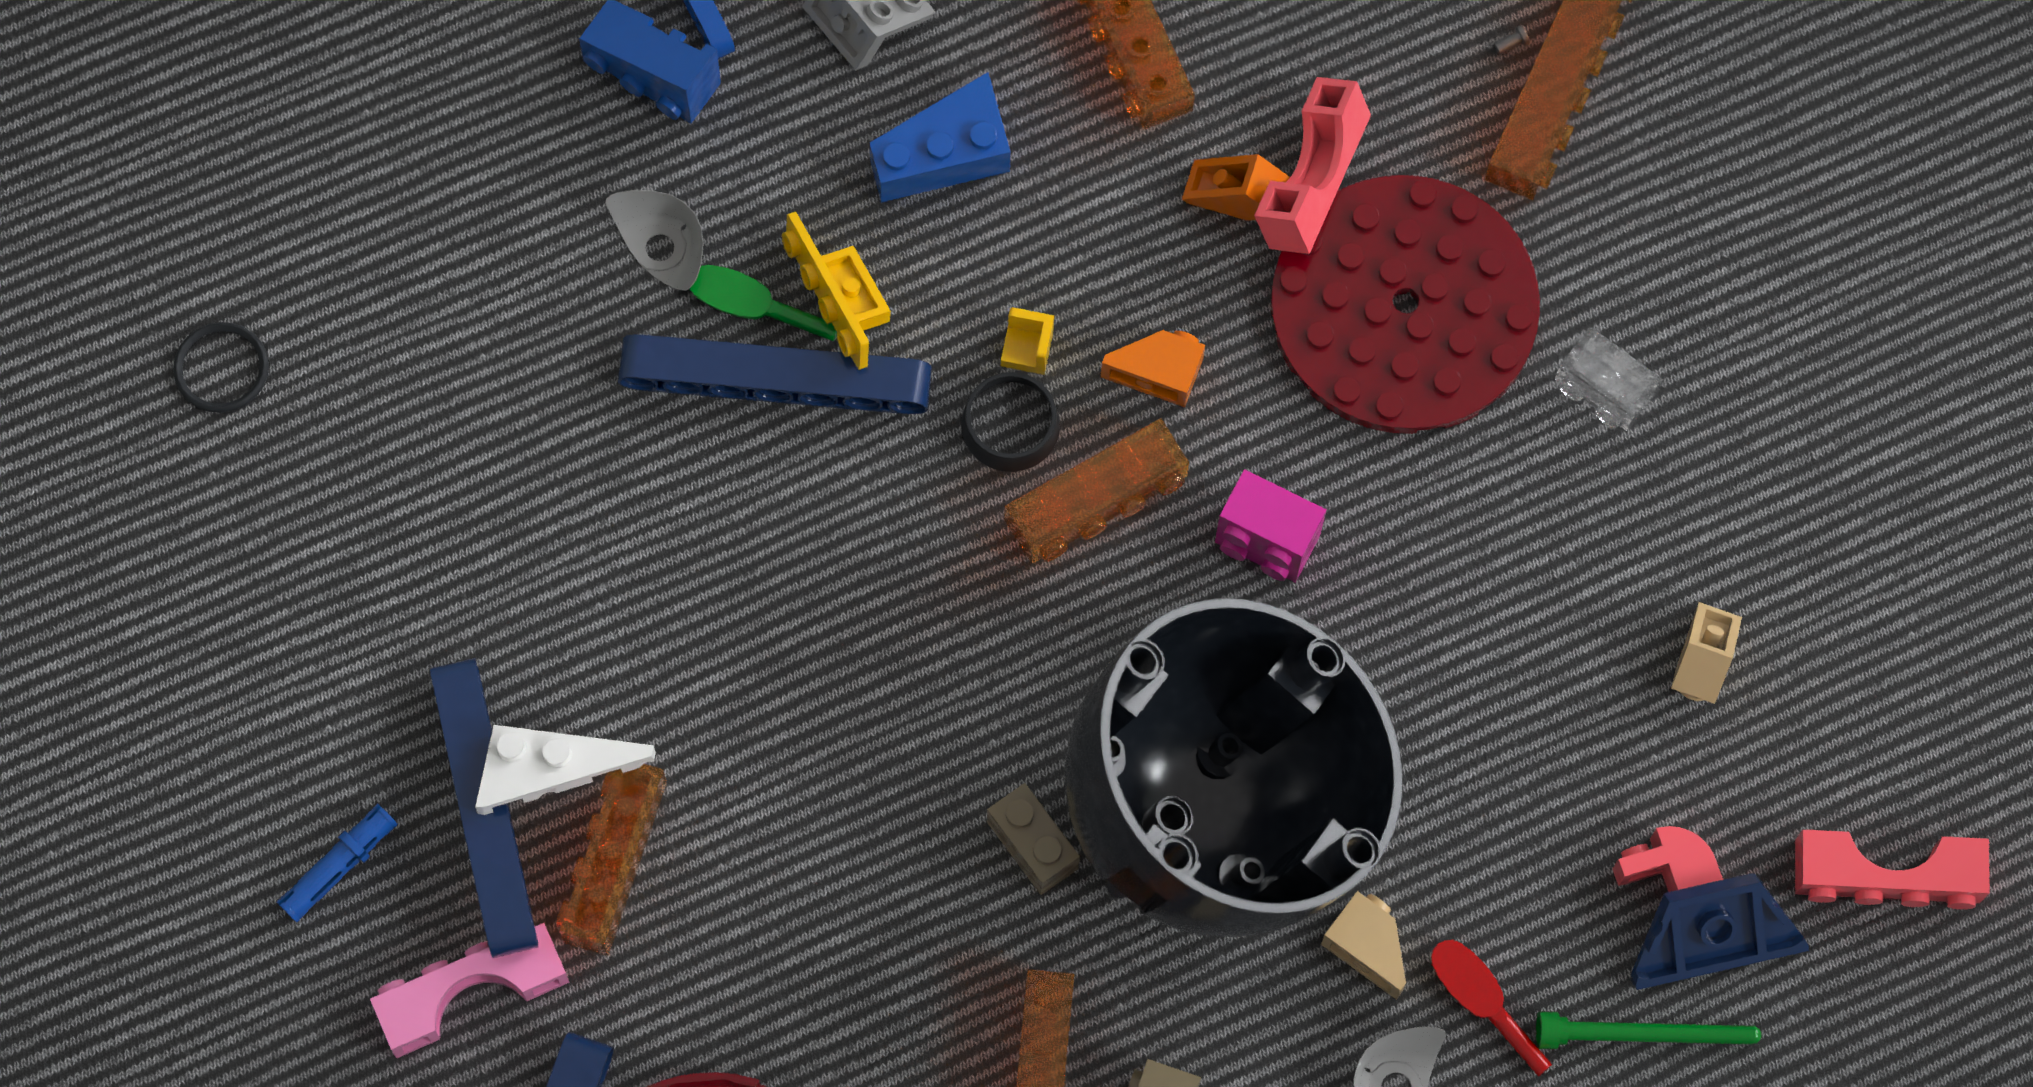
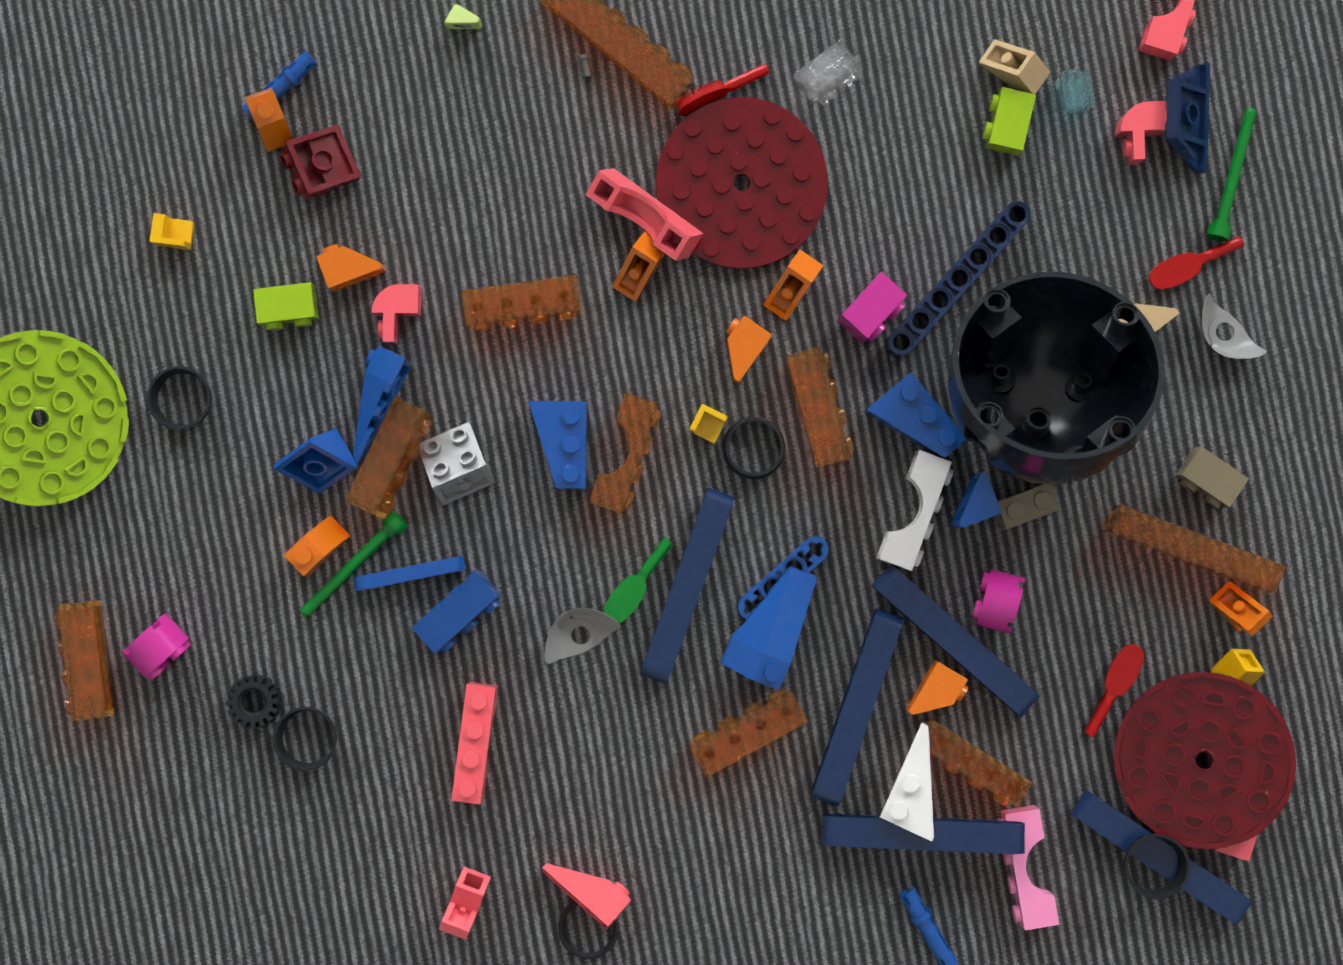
camera: 75 degrees left, 15 degrees up
(219, 179) = (464, 903): none -> coral brick
(276, 353) = (594, 894): none -> coral slope
(504, 124) = (474, 743): none -> coral arch
(575, 516) = (748, 732): none -> clear orange brick
(654, 667) = (856, 707): none -> dark blue beam
(713, 780) = (938, 689): none -> orange slope
(727, 505) = (768, 638): none -> blue wedge
(794, 790) = (955, 641): none -> dark blue beam
(801, 1056) = (1118, 681): none -> red piece
(827, 508) = (780, 569): none -> blue beam
(843, 289) = (643, 528): yellow bracket -> none
(874, 830) = (999, 600): none -> dark pink brick
(1002, 242) = (613, 489): none -> clear orange arch
(1015, 754) = (977, 502): none -> blue slope
(1035, 684) = (928, 476): none -> white arch
(1124, 609) = (918, 417): none -> blue wedge
(1274, 411) = (793, 285): none -> orange slope
(1379, 651) = (970, 272): none -> dark blue beam
(1532, 231) = (718, 90): none -> red piece
(1620, 664) = (1009, 121): none -> lime brick
(1696, 750) = (1074, 91): none -> clear light blue brick

